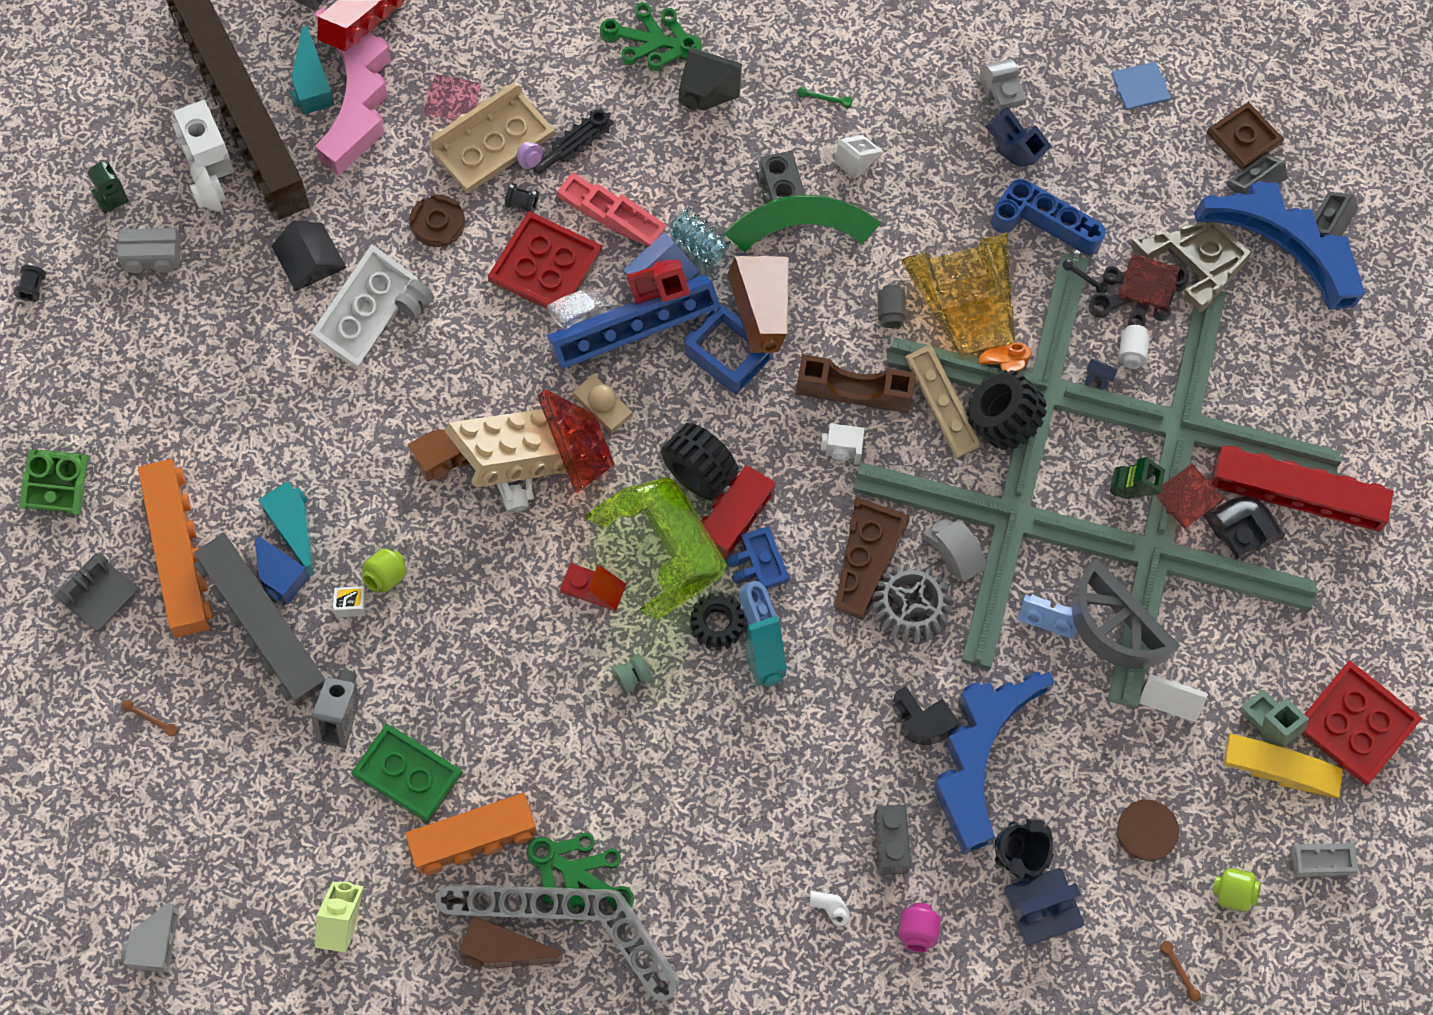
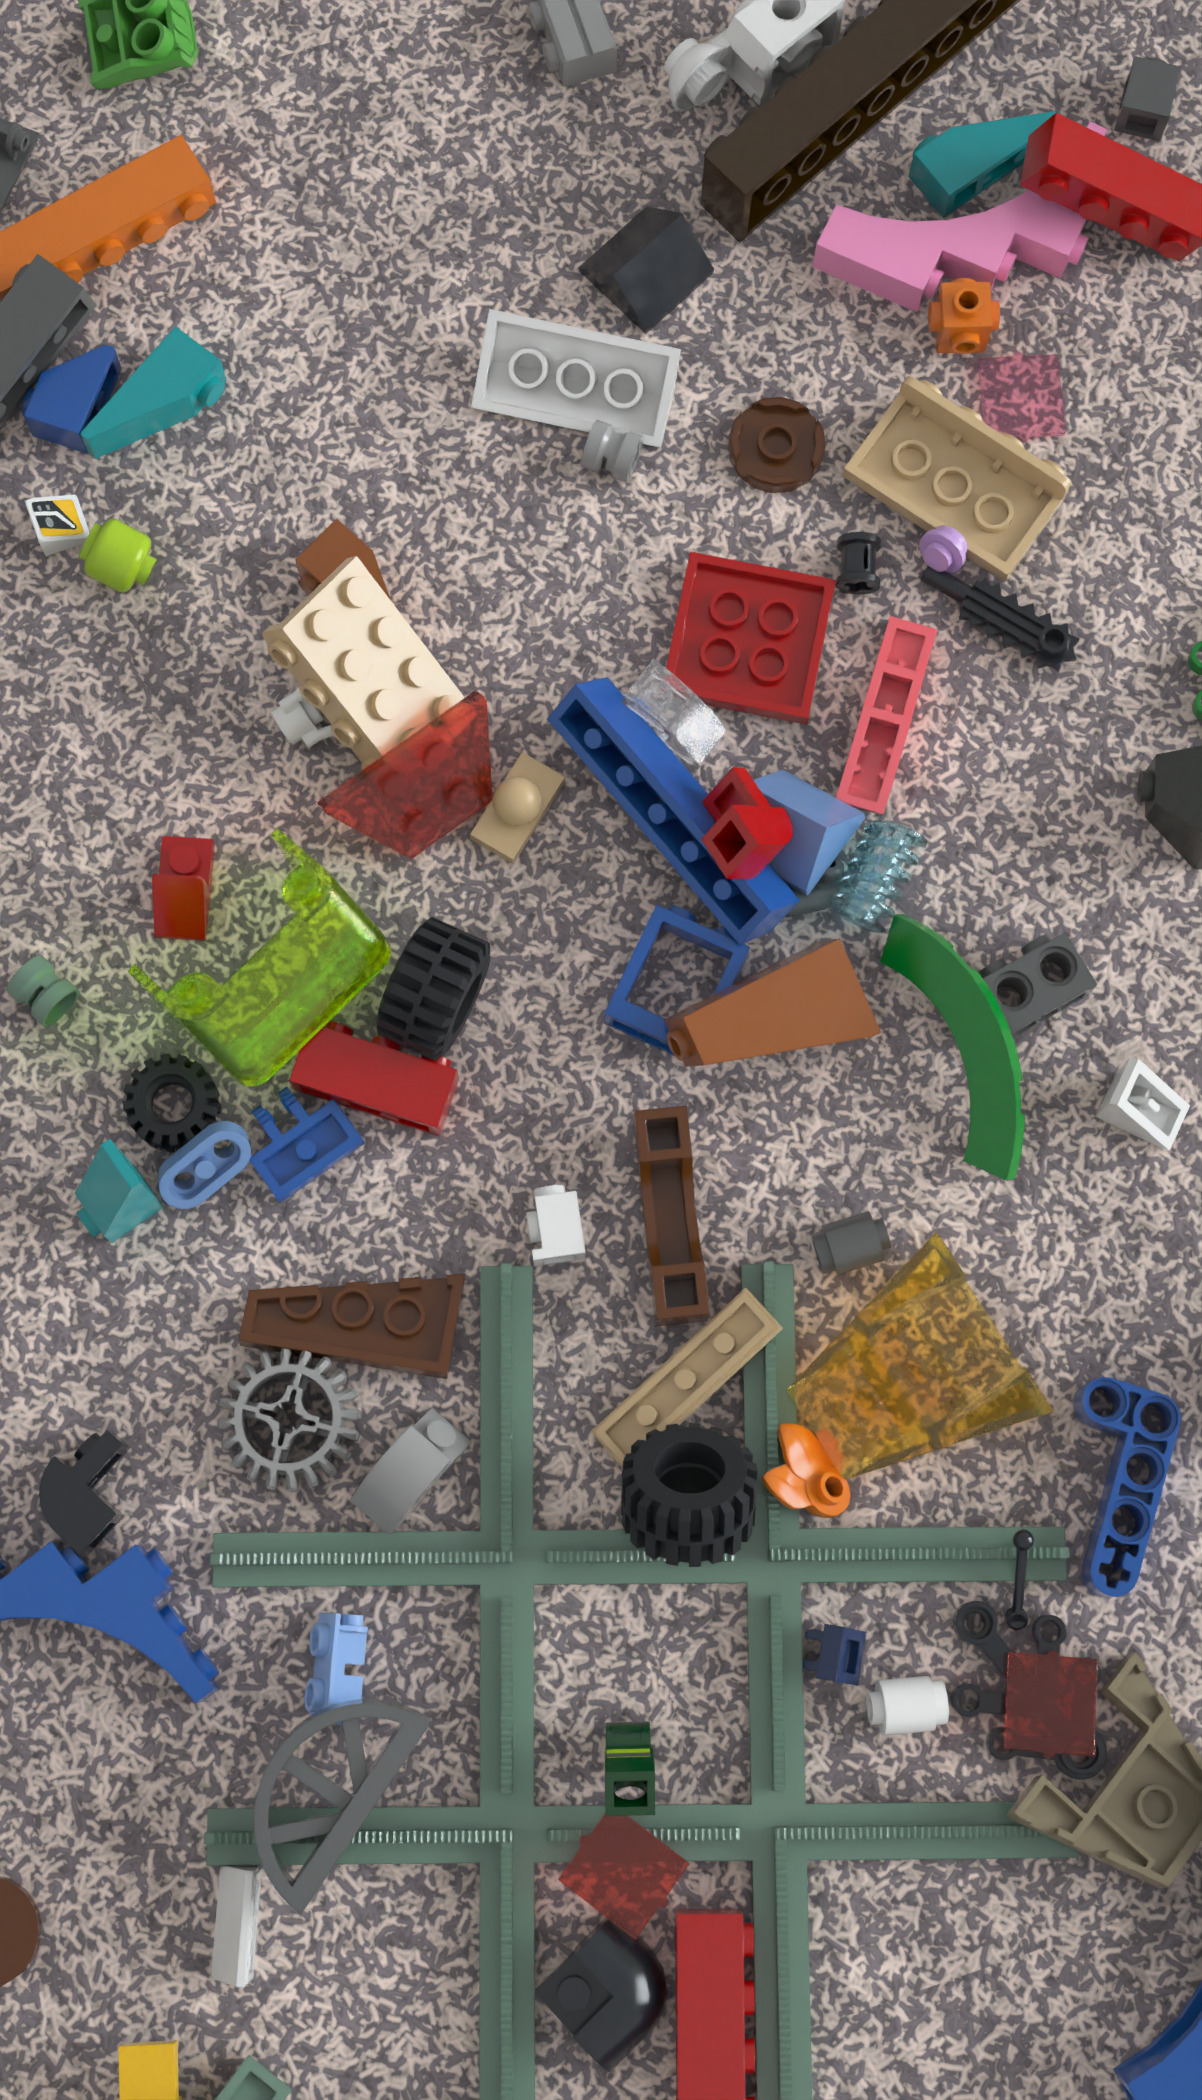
camera: 75 degrees right, 10 degrees up
(401, 107) = (963, 316): none -> orange brick

